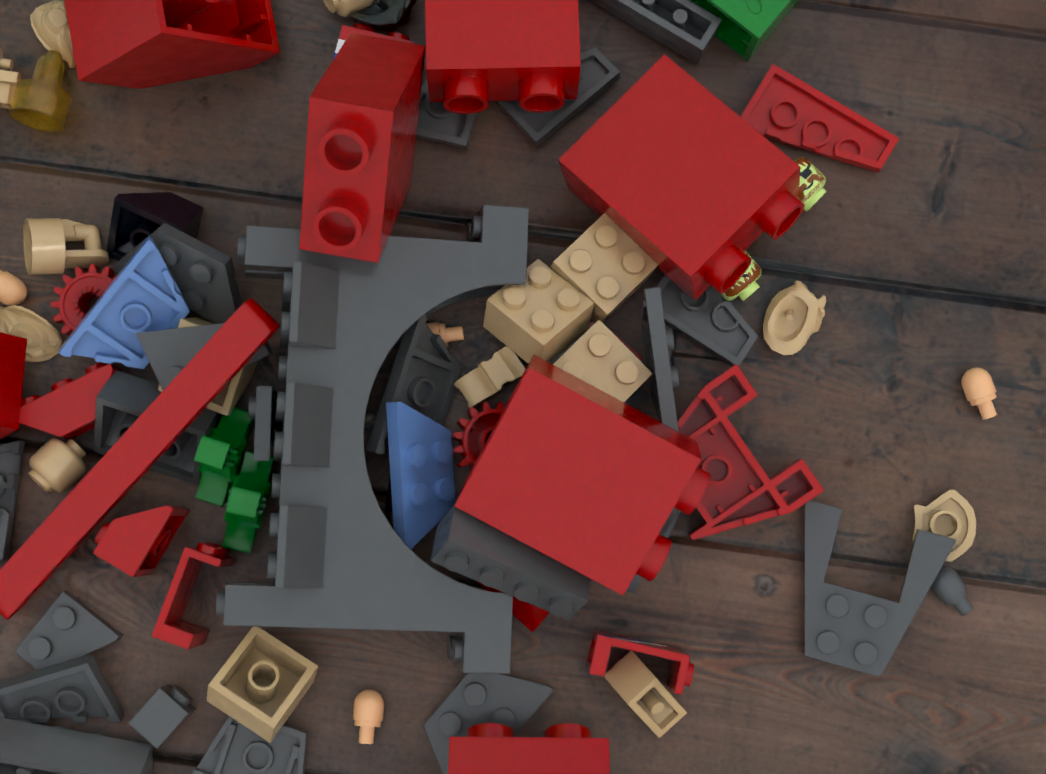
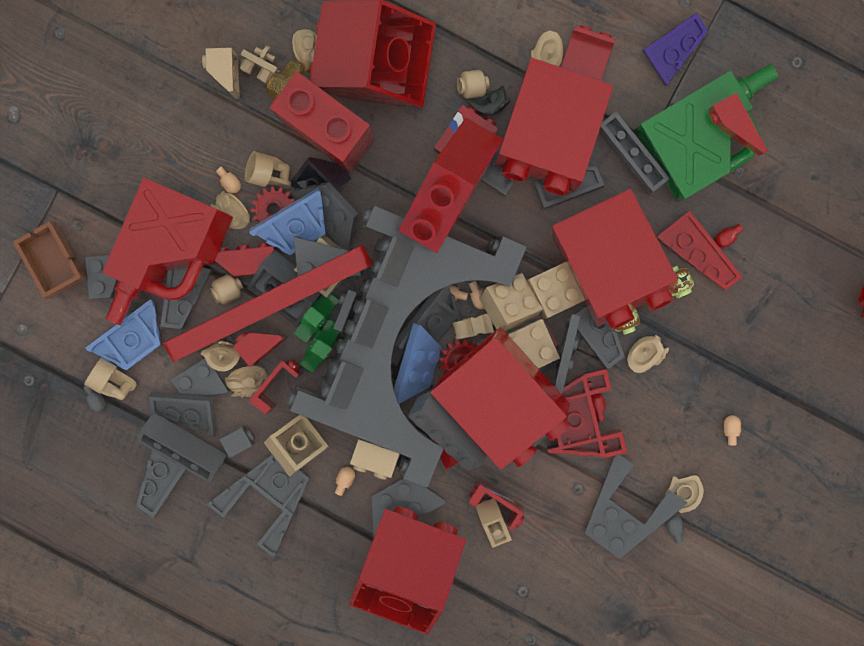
camera: 20 degrees right, 5 degrees up
(84, 579) = (221, 356): none -> tan hat
(114, 121) = (323, 122): none -> red brick
(139, 606) = (246, 380): none -> tan hat
(403, 656) = (374, 458): none -> tan brick
(475, 325) = (475, 295): none -> light nougat cylinder
(748, 432) = (599, 406): none -> red cylinder
(850, 83) = (728, 236): none -> red cylinder

